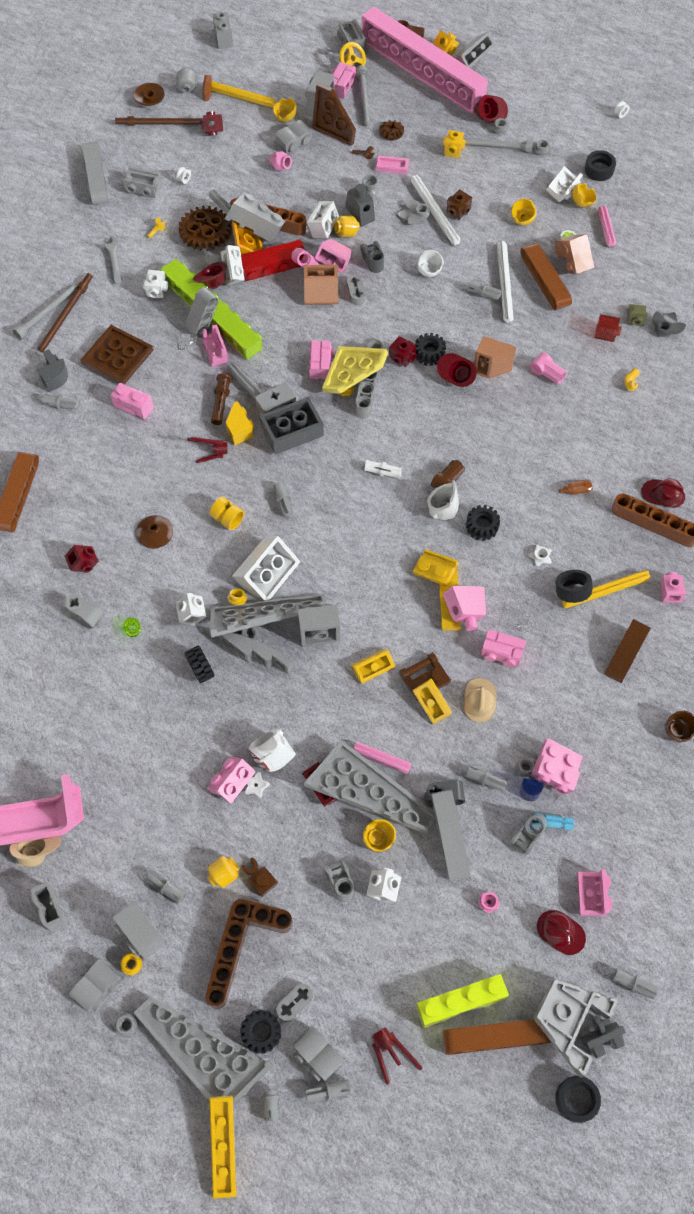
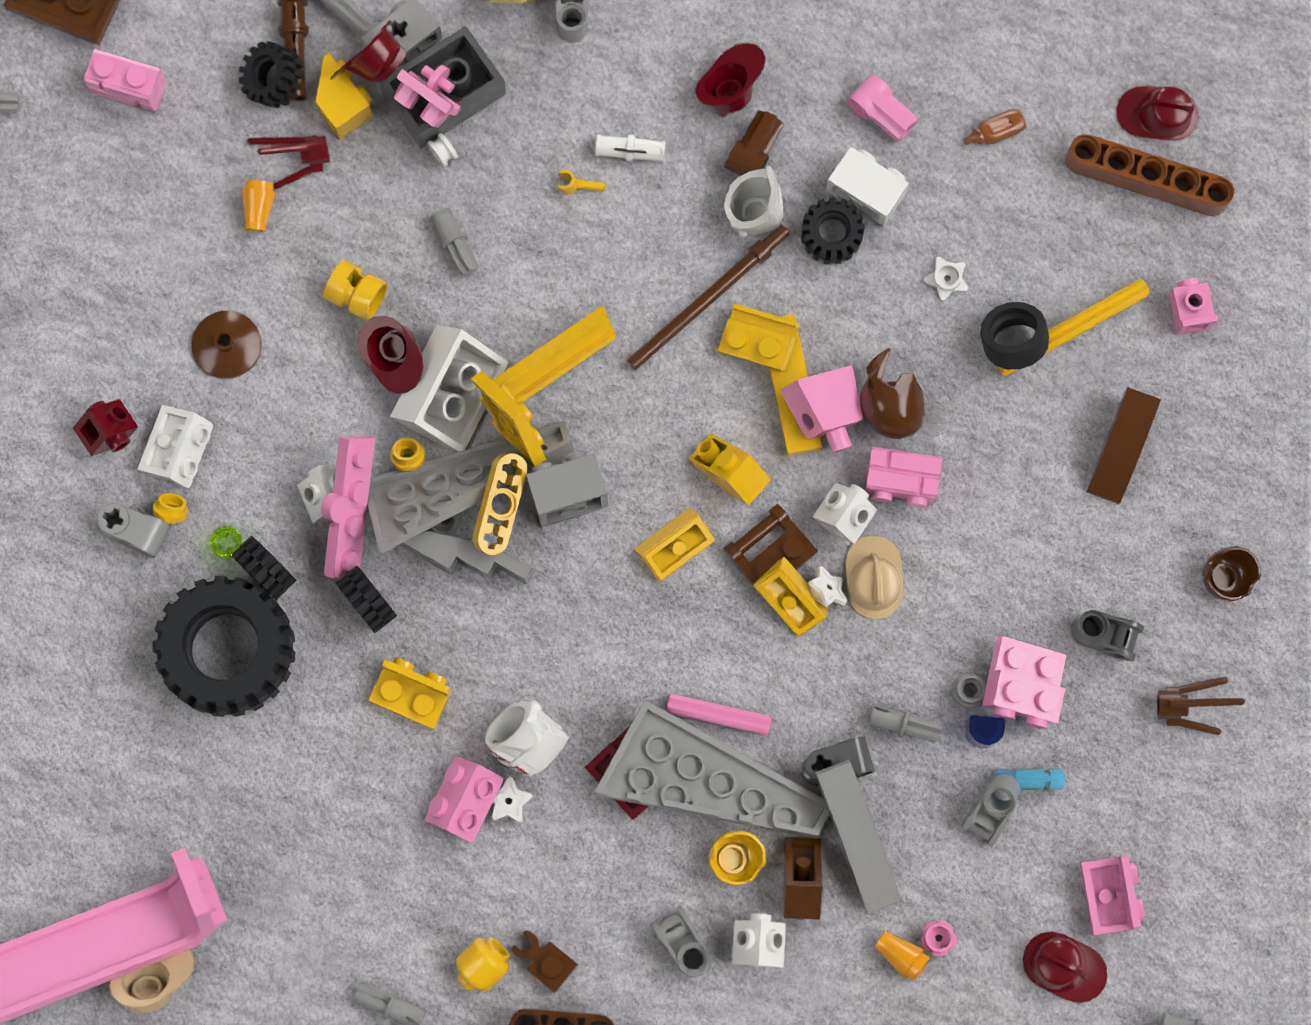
camera: 10 degrees left, 15 degrees up
(106, 604) = (170, 508): none -> yellow plate
(110, 654) = (187, 617): none -> black tyre
(116, 575) = (176, 445): none -> white bracket
(148, 639) = (263, 567): none -> black tyre
(185, 467) = (257, 204): none -> light orange cone
(199, 612) = (348, 504): none -> bright pink hinge
(205, 407) = (257, 70): none -> black tyre
(214, 718) = (411, 694): none -> yellow bracket
(238, 544) = (391, 353): none -> dark red piece
(258, 403) = (377, 59): none -> dark red piece
(276, 418) = (414, 86): none -> bright pink hips
(280, 638) = (501, 531): none -> yellow beam
(285, 455) = (442, 150): none -> white bush
(298, 572) = (510, 389): none -> yellow bracket
(350, 482) = (578, 183): none -> yellow hand
(409, 630) = (730, 468): none -> yellow slope
(414, 854) = (802, 878): none -> reddish brown slope
(440, 444) = (731, 79): none -> dark red piece
(442, 528) = (758, 253): none -> reddish brown bar
(452, 700) = (827, 588): none -> white plate
(468, 910) = (902, 955): none -> light orange cone
(469, 661) = (845, 512): none -> white brick
(502, 611) = (891, 407): none -> reddish brown helmet
(507, 504) = (867, 185): none -> white brick
(515, 465) = (875, 102): none -> bright pink piece
(608, 749) = (1114, 634): none -> dark grey piece
(642, 792) = (1173, 705): none -> reddish brown plant

